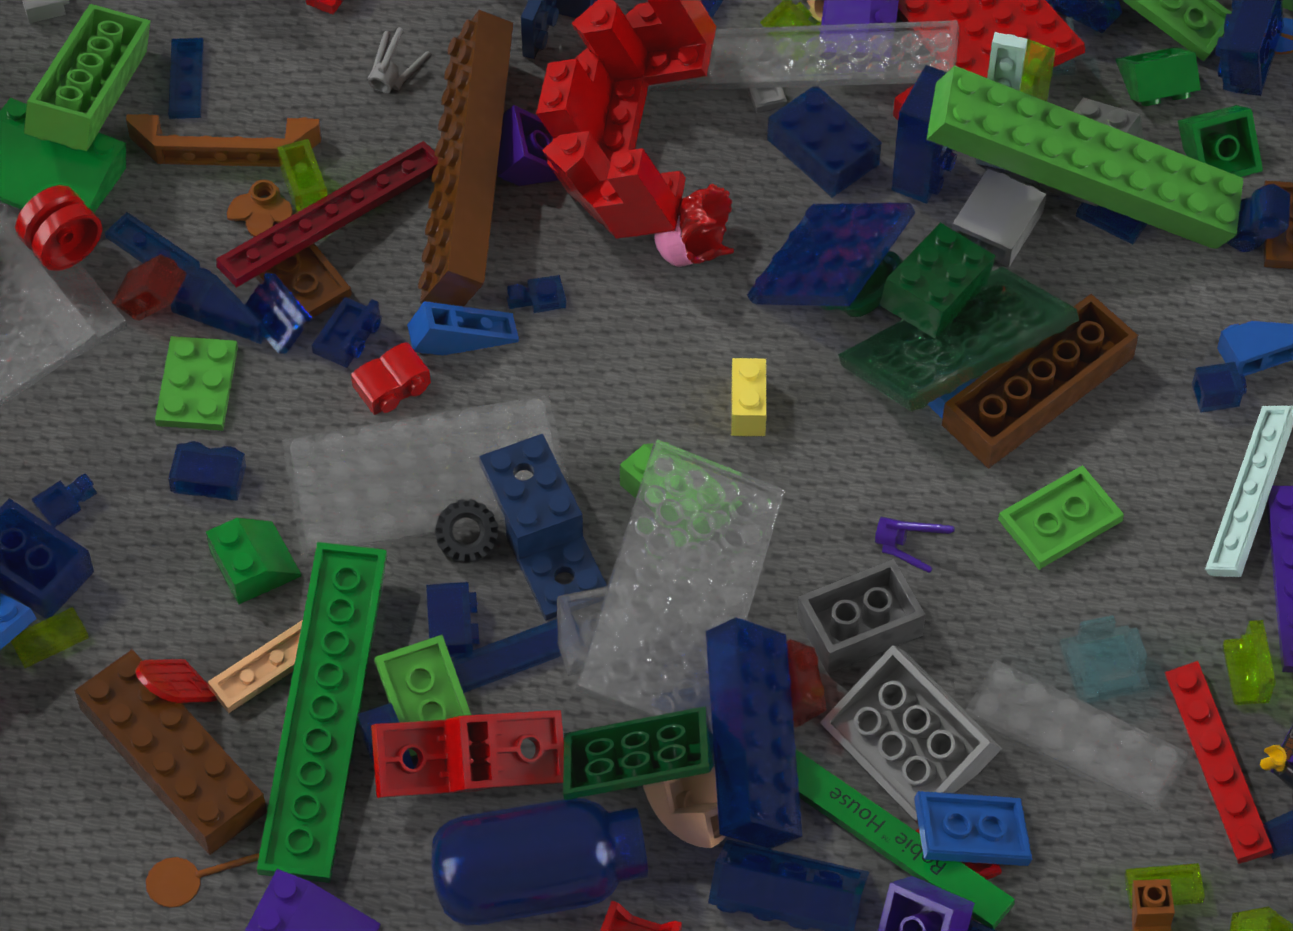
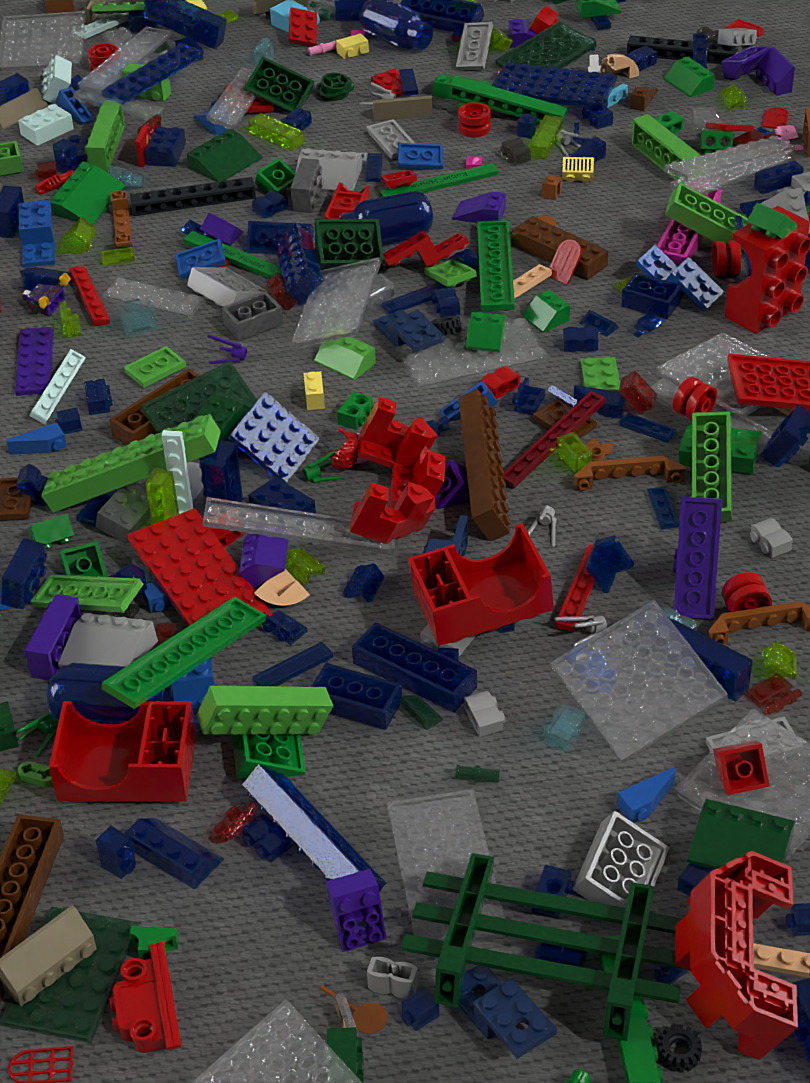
camera: 175 degrees right, 15 degrees down
(153, 526) = (602, 324): none -> clear blue slope
(390, 485) = (486, 331): none -> green slope
(679, 344) = (355, 410): none -> green brick
(764, 214) = (313, 470): none -> green plant
(1169, 443) = (97, 396): none -> clear blue brick

